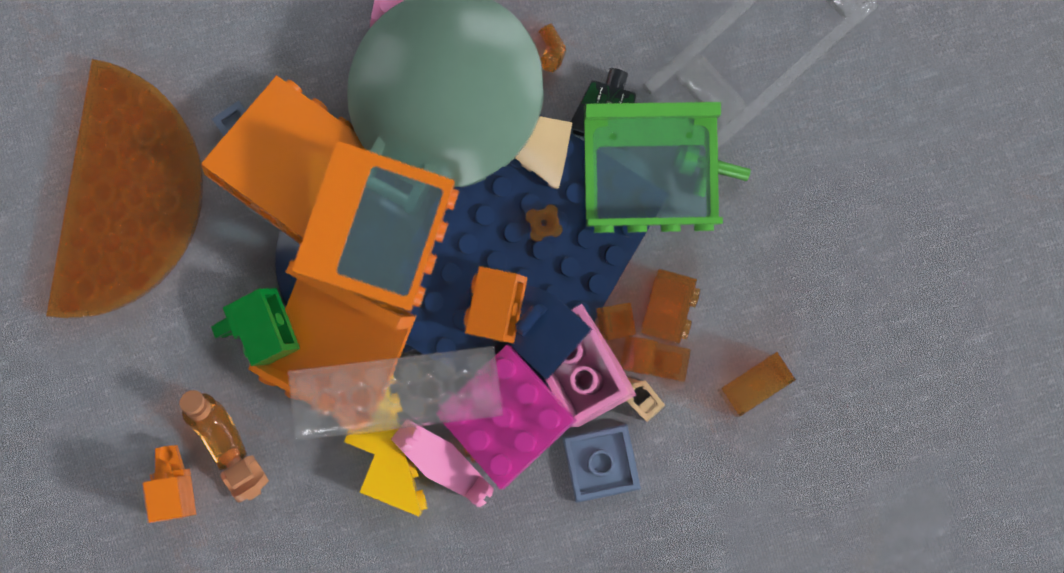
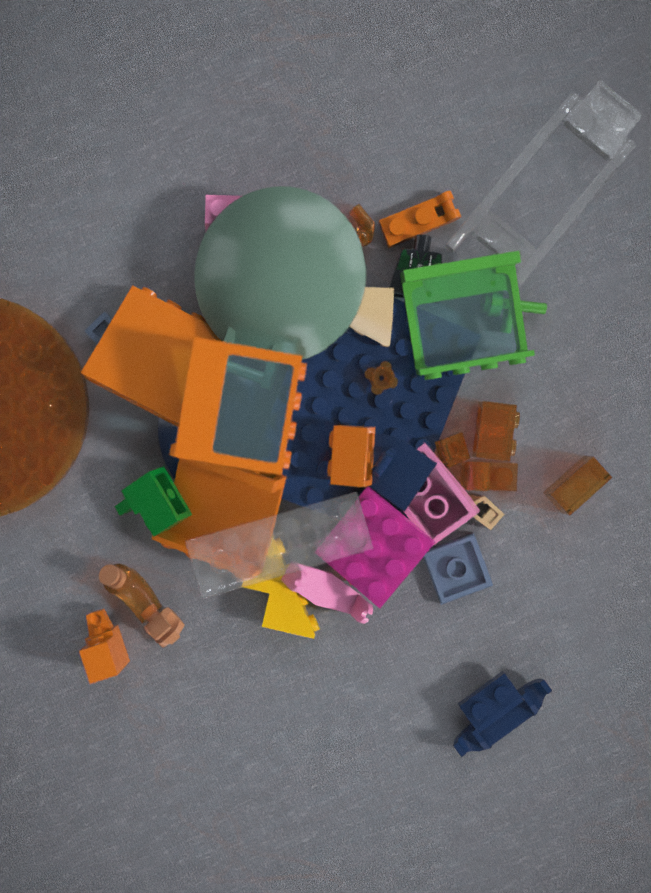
camera: 15 degrees left, 5 degrees up
(617, 51) = (418, 219): none -> orange plate

